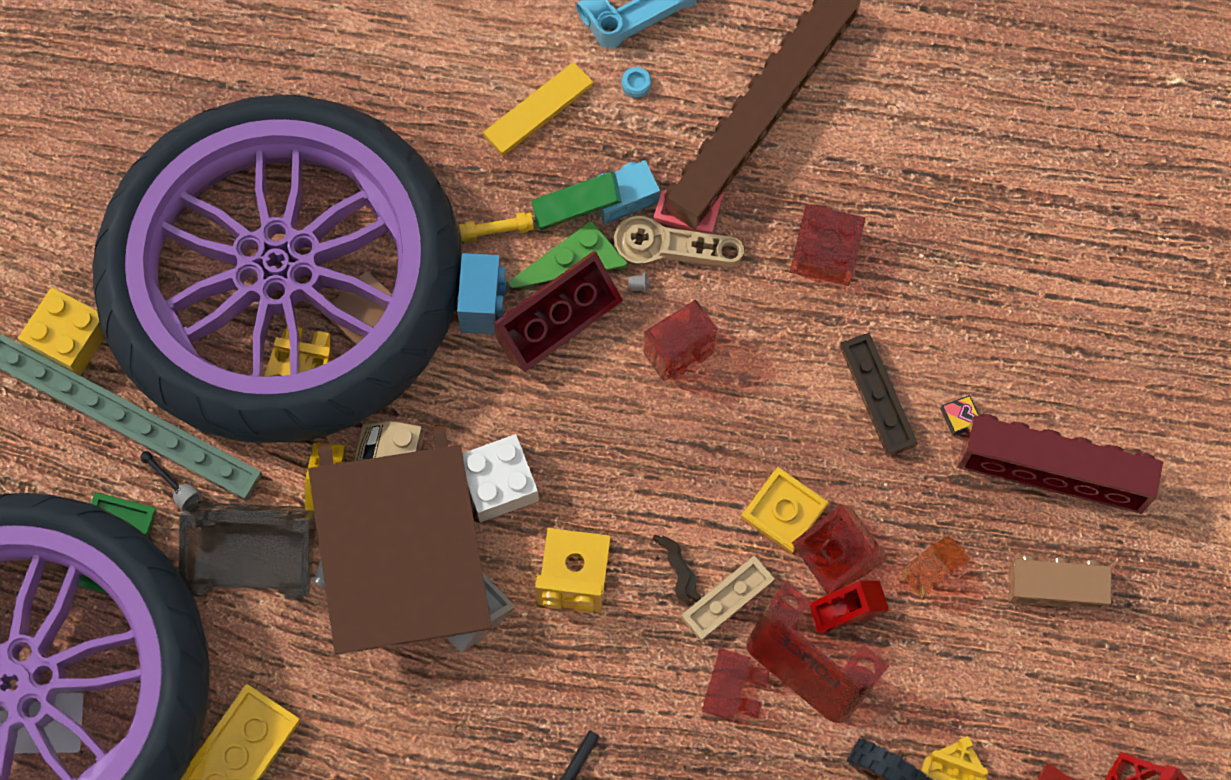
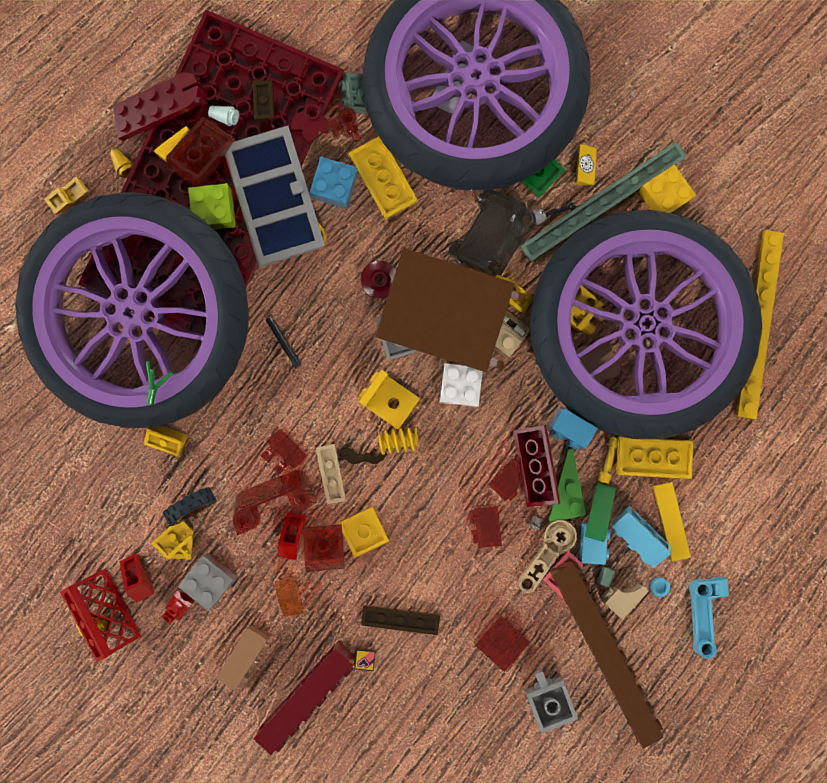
camera: 115 degrees right, 15 degrees up
(74, 468) = (585, 165): none -> yellow slope
(136, 140) = (765, 287): none -> yellow plate
(395, 662) = (377, 270): none -> dark red dish
(462, 168) = (655, 457): none -> yellow tile
(581, 134) = (641, 537): none -> medium azure brick
(600, 348) = (506, 480): none -> clear red slope
(624, 525) = (398, 441): none -> yellow piece
(661, 155) = (605, 576): none -> sand green hinge
(680, 115) = (623, 601): none -> tan arch
(871, 142) = (550, 702): none -> light grey hinge
(984, 692) = (207, 581): none -> light grey brick
(1046, 716) = (177, 607): none -> red hips

